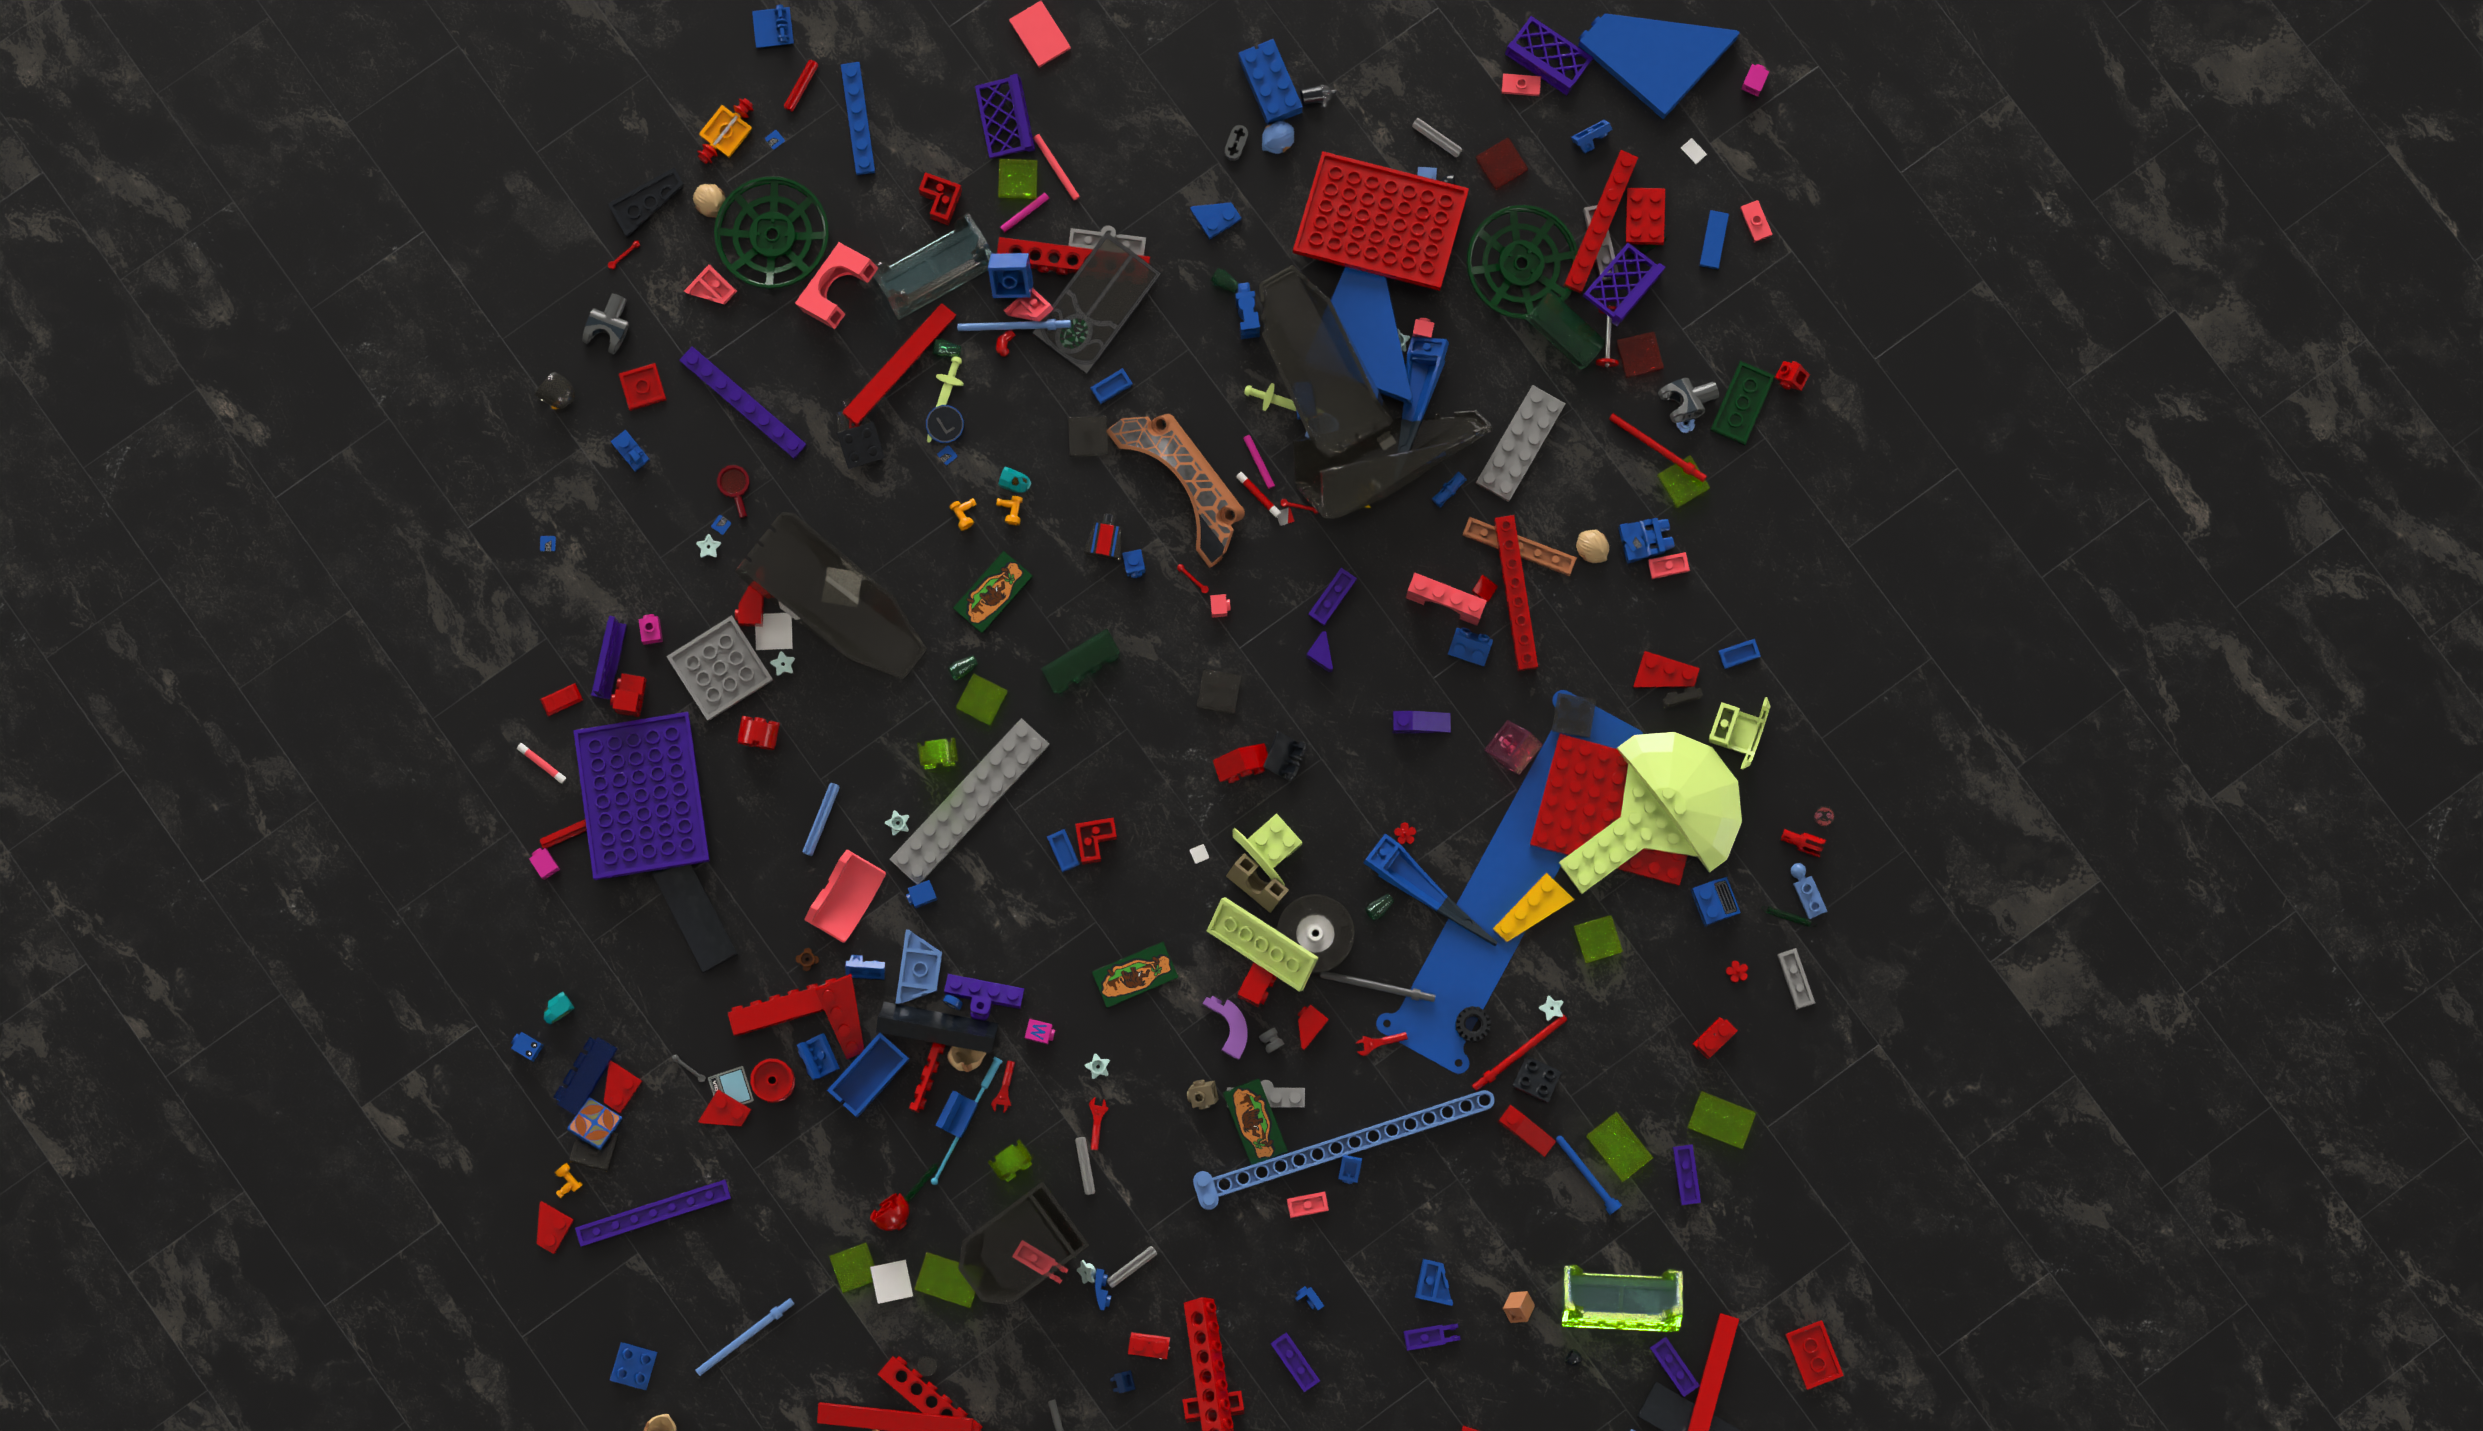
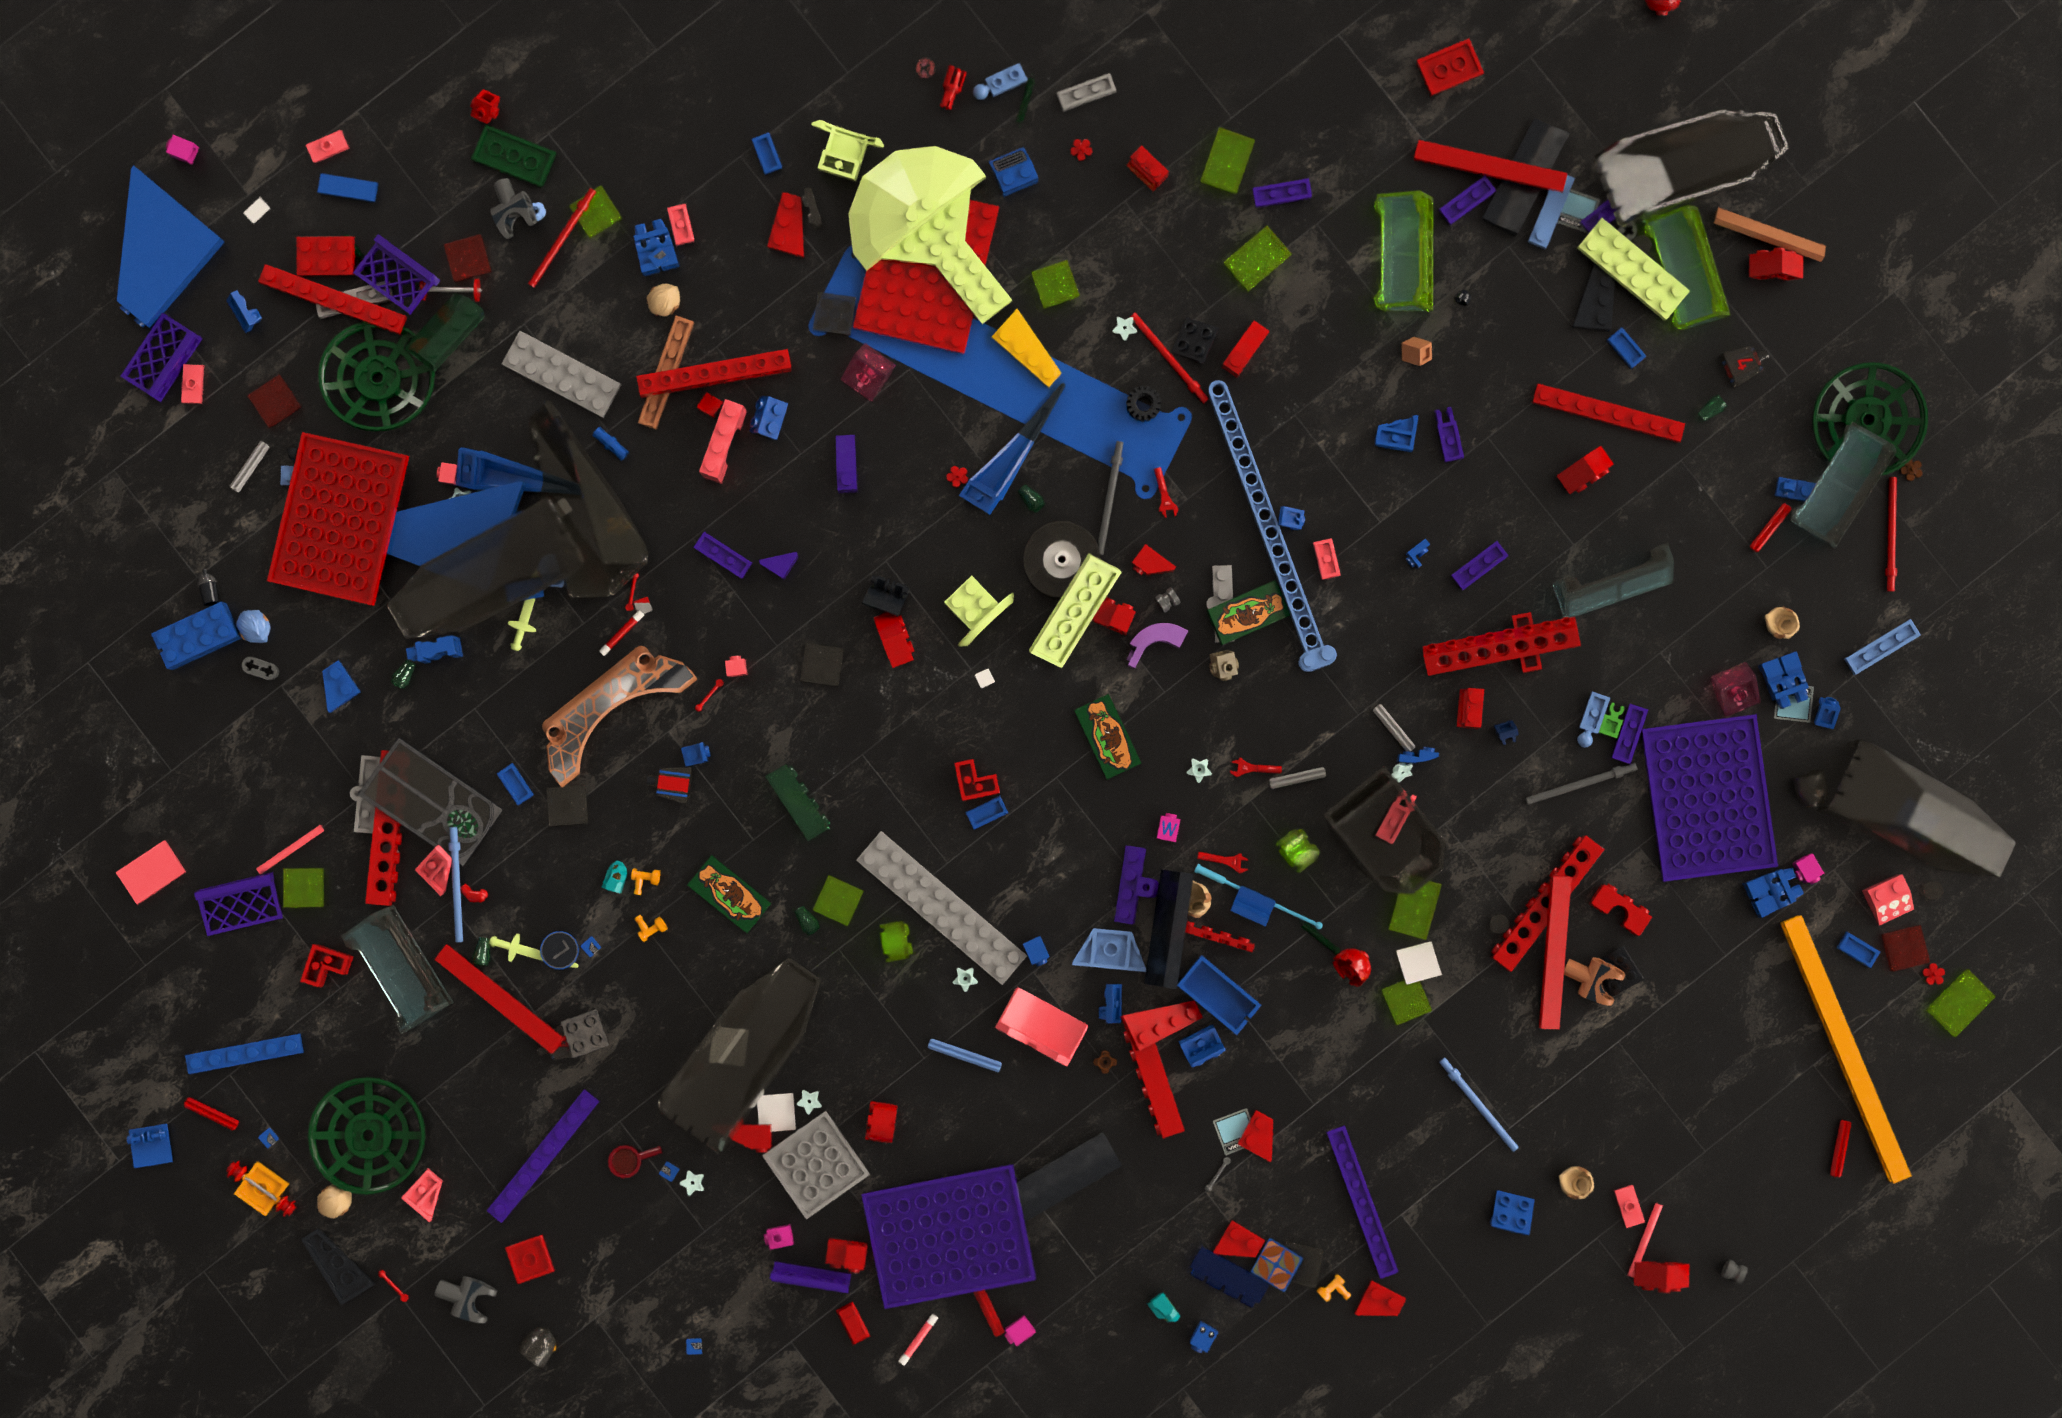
camera: 90 degrees left, 5 degrees up
(630, 450) = (596, 1268): blue hinge -> none
(763, 1074) = (1216, 1089): red wheel -> none
(839, 263) = (396, 1064): coral arch -> none
(952, 1002) = (1142, 914): blue tile -> none
(1010, 275) = (405, 889): blue brick -> none
(1023, 213) = (338, 879): dark pink bar -> none
(1245, 877) = (1023, 610): dark tan arch -> none
(1259, 462) = (588, 633): dark pink bar -> none
(1611, 1204) = (1313, 265): blue piece -> none

